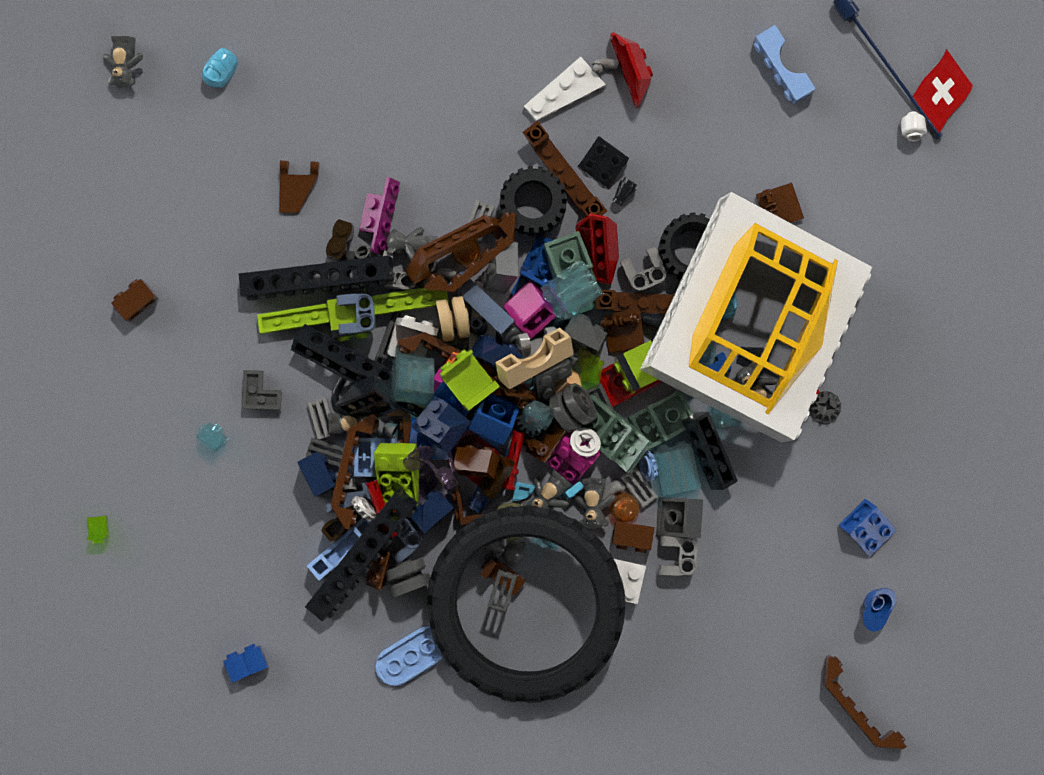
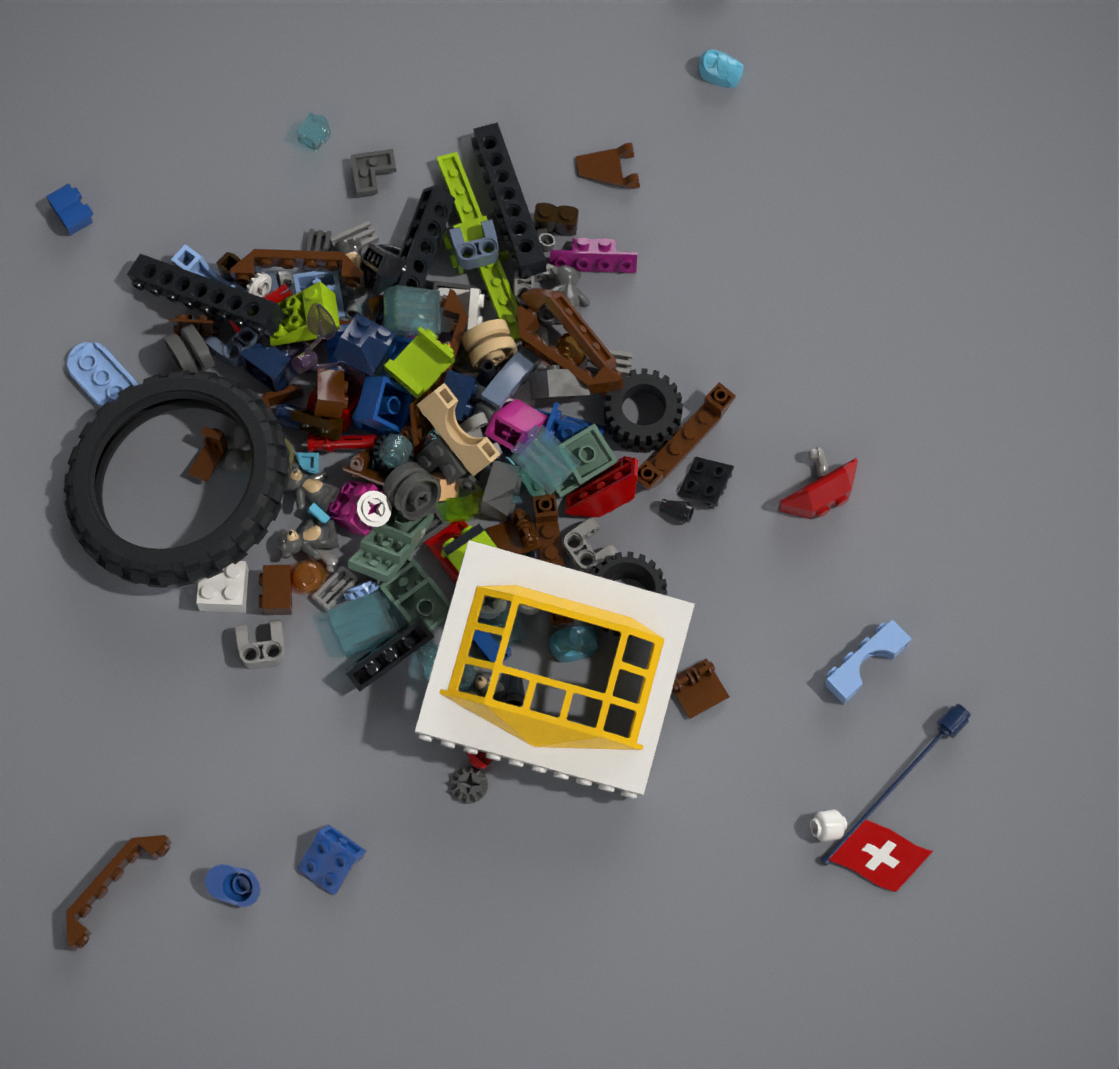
camera: 75 degrees right, 15 degrees down
(98, 529) = (194, 41): clear neon green bracket -> none
(134, 300) = (448, 30): reddish brown brick -> none
(317, 473) = (289, 234): dark blue slope -> none
(506, 575) = (202, 451): dark grey tile -> none
(568, 87) = (780, 425): white wing -> none
(679, 517) = (307, 639): dark grey slope -> none

